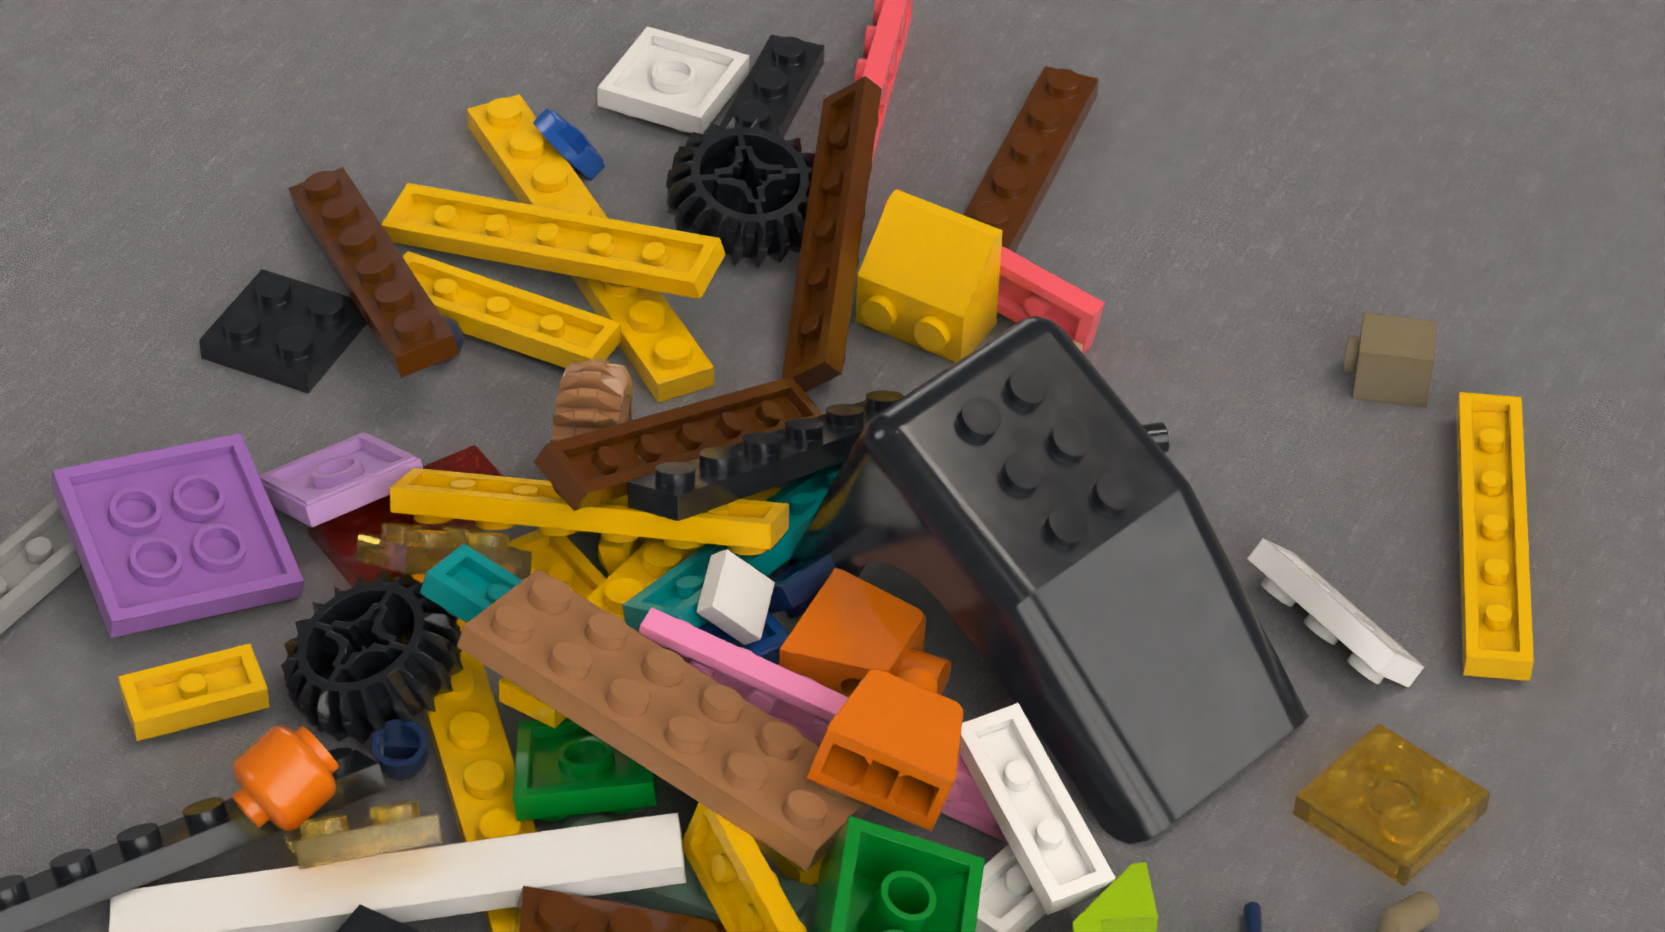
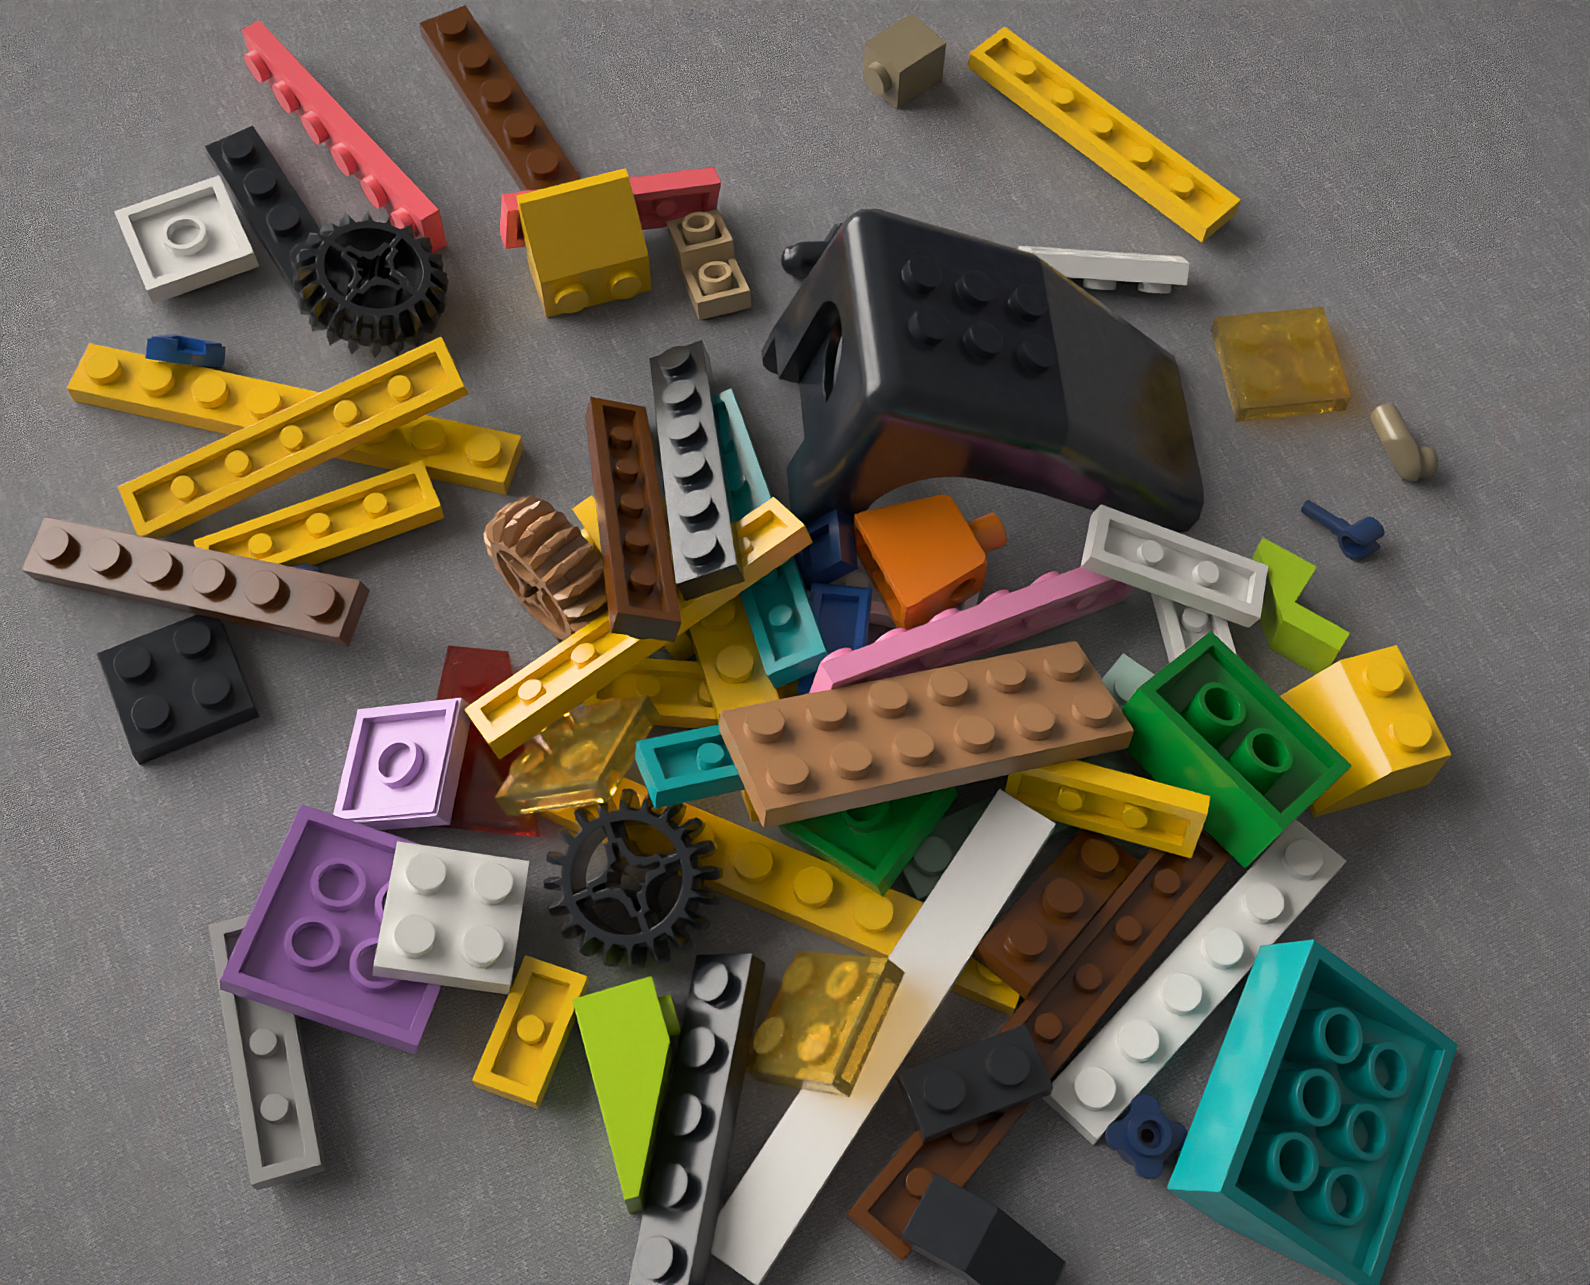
camera: 50 degrees left, 20 degrees up
(193, 760) = (631, 1066): none -> lime slope
(234, 576) = (451, 918): none -> white plate
(284, 778) = (739, 1041): orange head -> none
(403, 743) = (738, 935): dark blue hinge -> none
(735, 597) = (827, 598): white tile -> none
(832, 235) = (486, 266): reddish brown plate -> none
(893, 746) = (1084, 607): orange torso -> none

